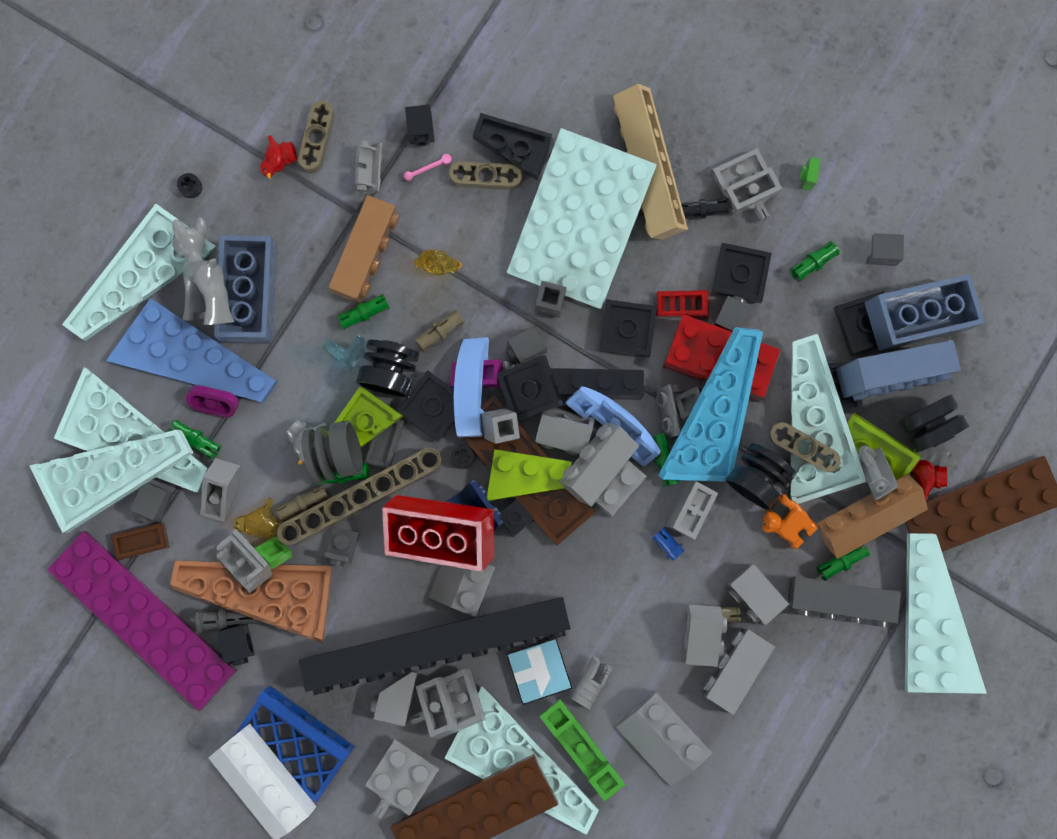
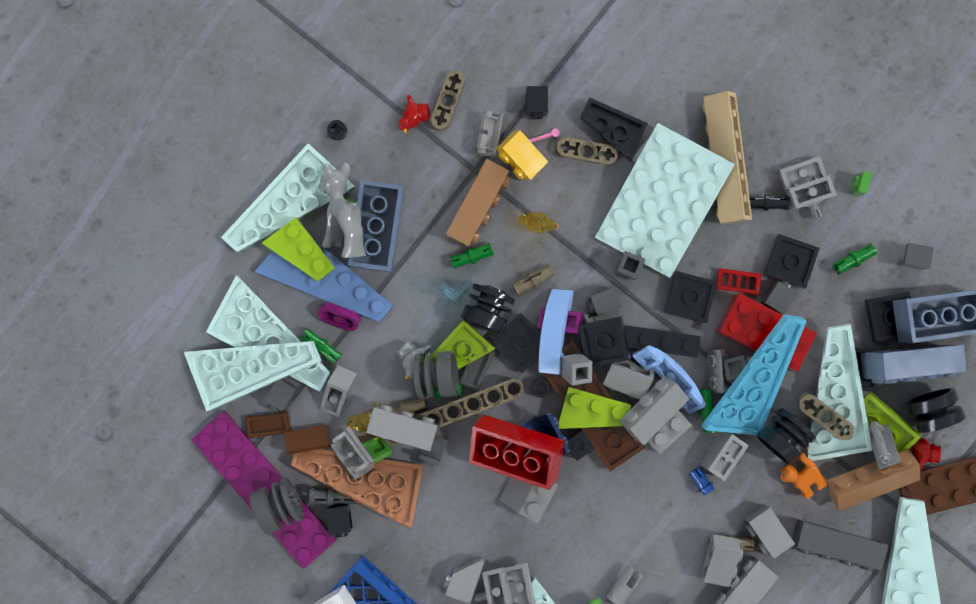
camera: 10 degrees right, 5 degrees up
(154, 633) = (273, 507): none -> dark grey wheel
(157, 326) = (300, 249): none -> lime wing
(187, 552) = (307, 439): none -> reddish brown tile
(299, 519) = (402, 427): none -> light grey brick
(408, 187) = (521, 155): none -> yellow brick
(434, 644) = (503, 541): black brick -> none
(539, 671) = (582, 570): medium azure tile -> none
(844, 563) = (836, 516): green pin -> none

